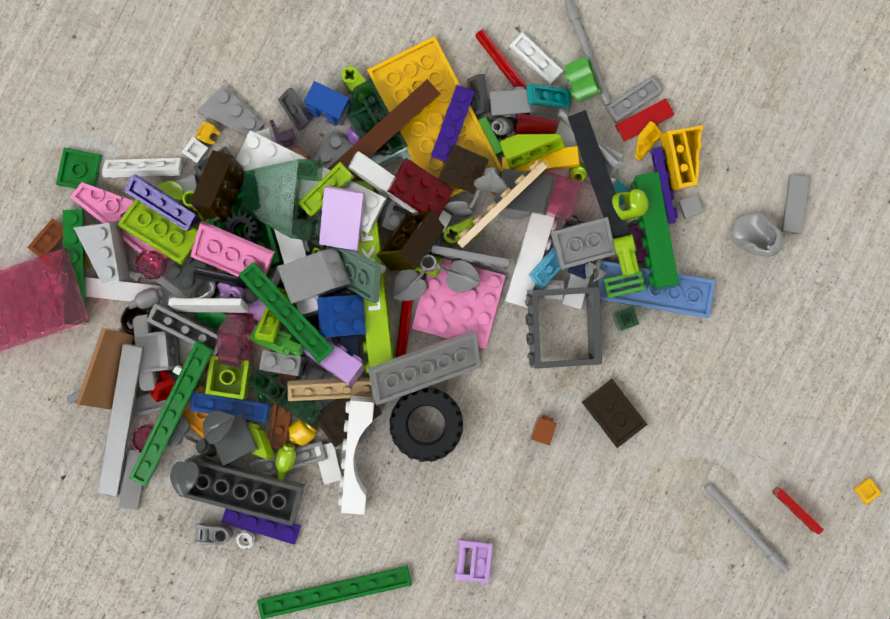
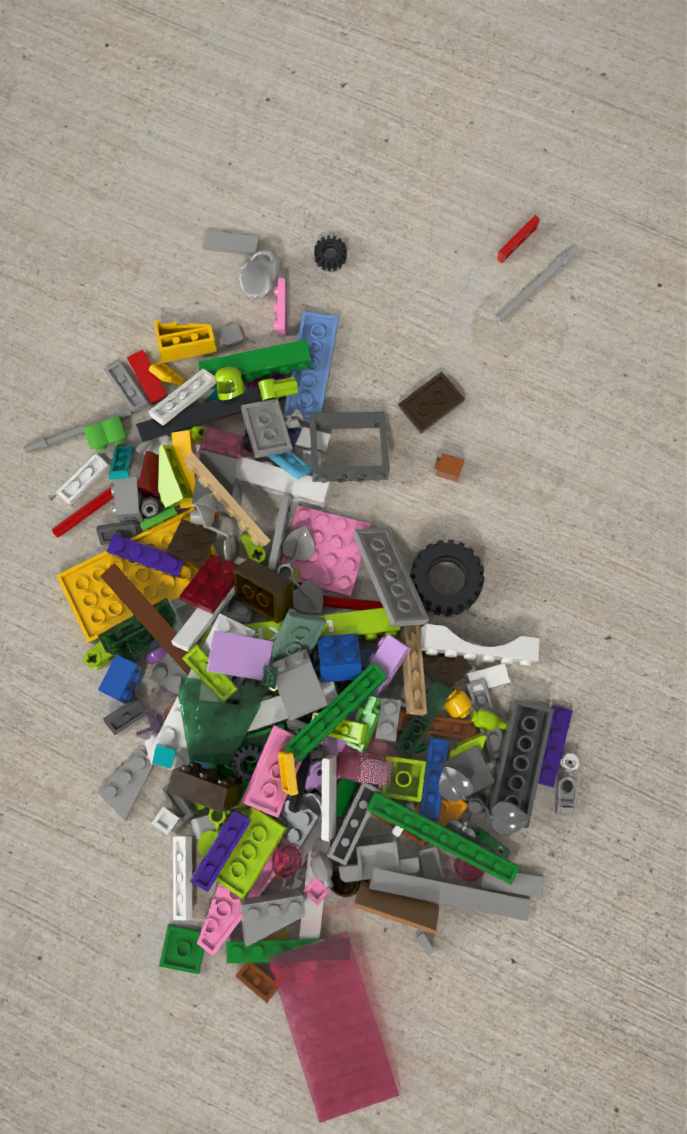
camera: 90 degrees left, 10 degrees down
(126, 293) = (316, 891): none -> bright pink tile
(163, 387) = (414, 847): red panel -> none
(167, 461) = (492, 842): none -> dark green tile
(205, 131) = (146, 810): yellow tile -> none
(228, 265) = (287, 772): none -> yellow tile
(249, 147) = (164, 755): none -> teal slope
(321, 247) = (269, 676): none -> clear green tile
(334, 592) = (619, 671): green tile -> none
(479, 561) = (580, 527): lavender plate -> none
(615, 156) = (182, 397): none -> white plate
(625, 318) = (340, 391): clear green brick -> none
(640, 280) = (303, 378): bright green tile -> none
(658, 159) = (189, 363): dark purple plate -> none
(720, 257) = (280, 307): none -> bright pink plate
(793, 305) = (326, 244): none -> black tyre
(867, 491) = (497, 181): yellow tile -> none

